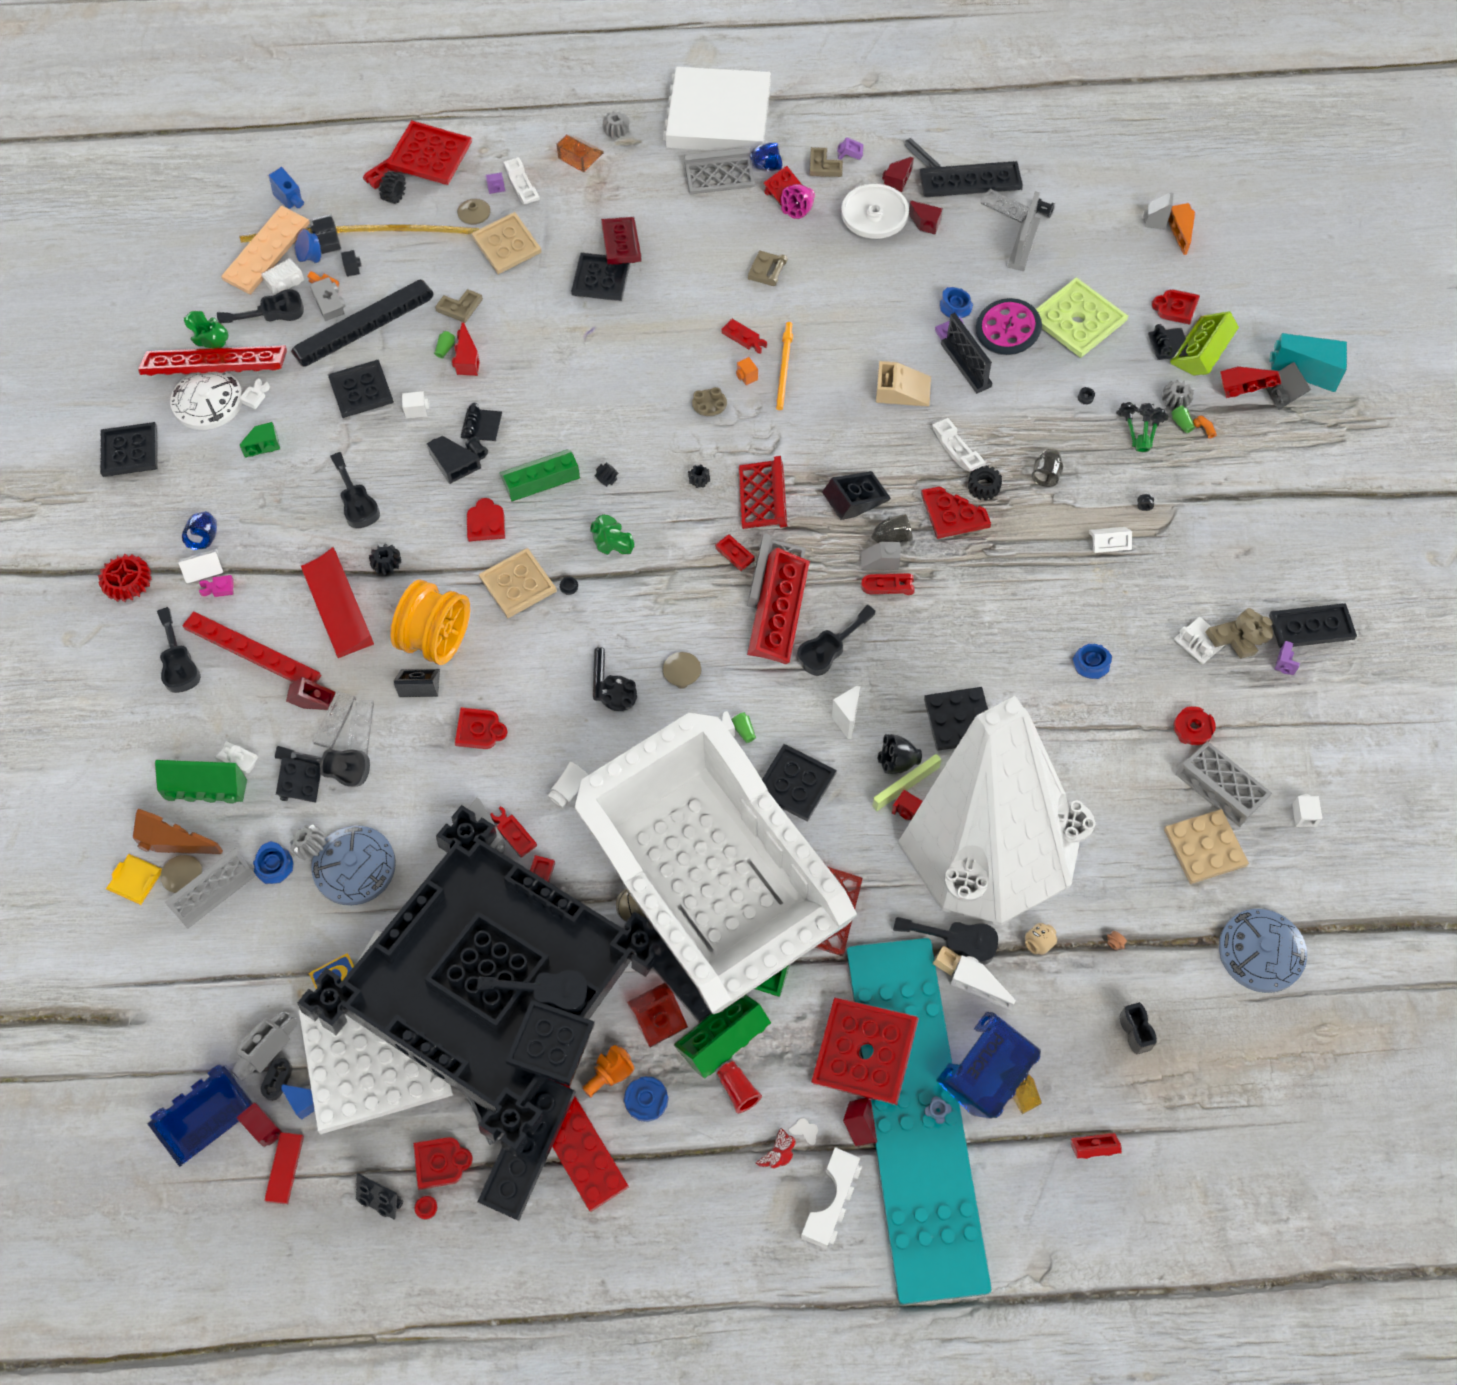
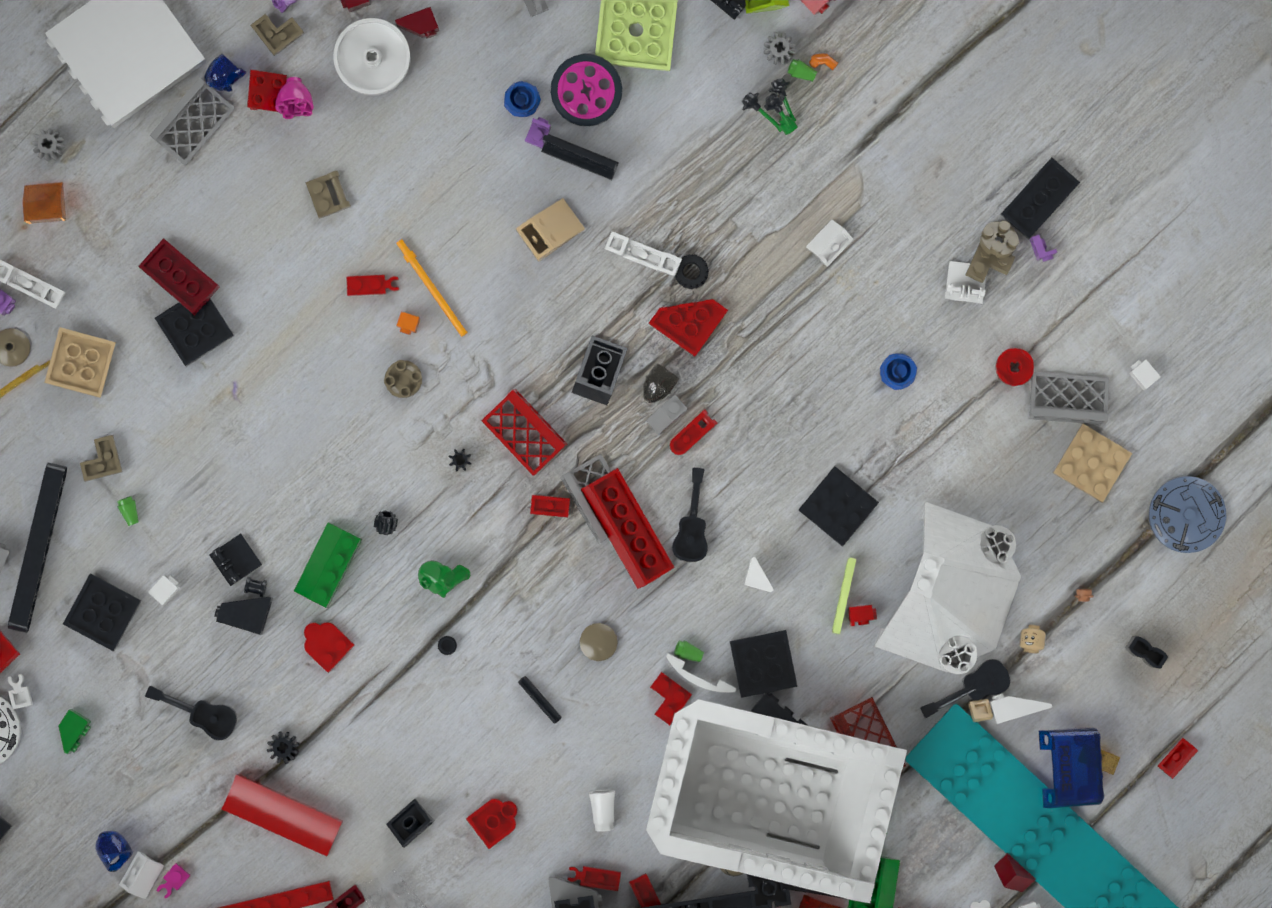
camera: 45 degrees left, 25 degrees up
(430, 622) = (385, 778): light orange wheel -> none
(467, 358) = (161, 506): red slope -> none
(517, 583) = (405, 678): tan plate -> none
(618, 693) = (569, 704): black dish -> none
(850, 1028) = (975, 848): red piece -> none
(898, 754) = (821, 580): black piece -> none
(944, 1109) = (1064, 825): sand blue plate -> none
(1048, 463) = (731, 215): clear smoke helmet -> none
(1091, 394) = (698, 108): black bush -> none
(1145, 502) = (832, 184): black bush -> none

